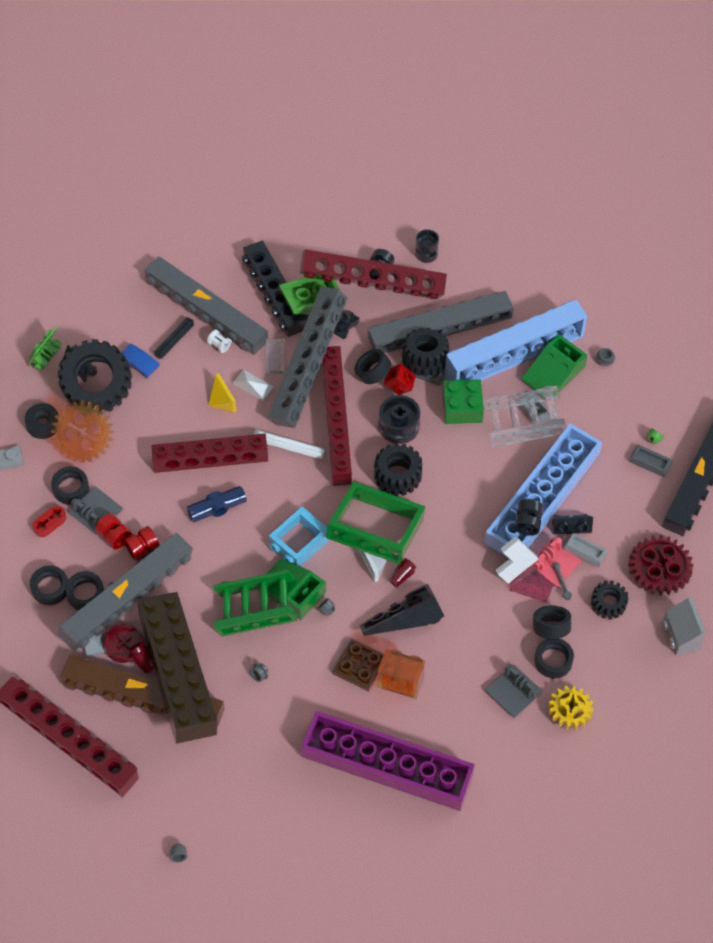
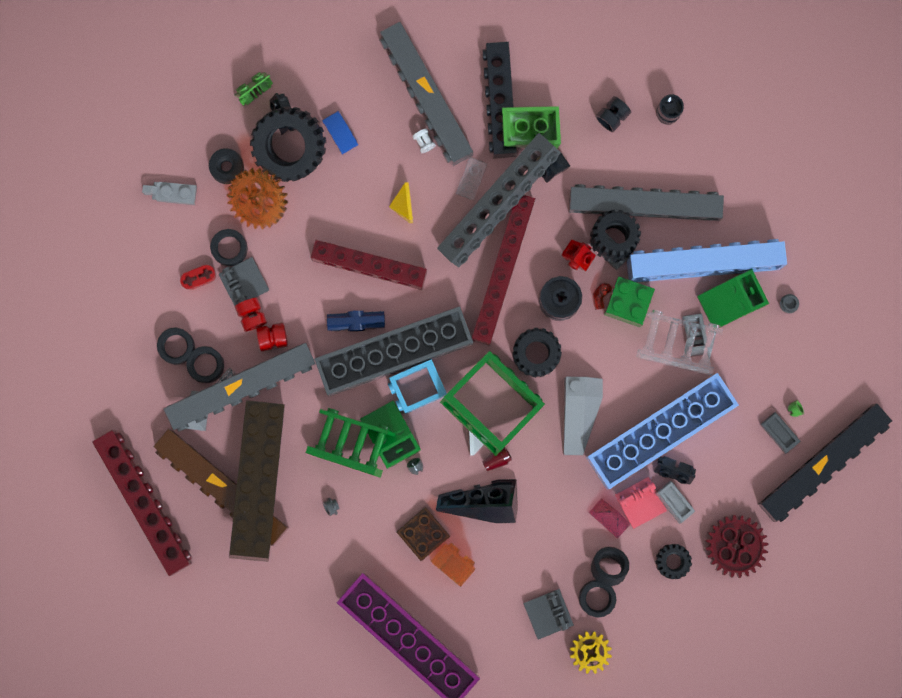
camera: 20 degrees right, 25 degrees up
(119, 640) = (222, 430): dark red tile -> none
(140, 655) = (231, 452): dark red cone -> none
(173, 338) = (382, 118): black axle -> none
(178, 853) = (200, 647): dark grey hinge -> none
(253, 385) = (439, 201): white slope -> none
(262, 513) = (393, 351): none -> dark grey brick
(293, 445) = (447, 281): white axle -> none
(367, 360) = (552, 221): black tyre -> none
(432, 408) = (599, 293): none -> clear red arm
(436, 280) = (543, 95): dark red brick -> none
(460, 504) = (581, 407): none -> light grey wedge
(519, 559) = (603, 494): white tile -> none
(528, 517) = (634, 456): black wheel -> none
(567, 595) = (637, 541): dark grey hinge -> none
(684, 627) = (725, 619): light grey slope -> none

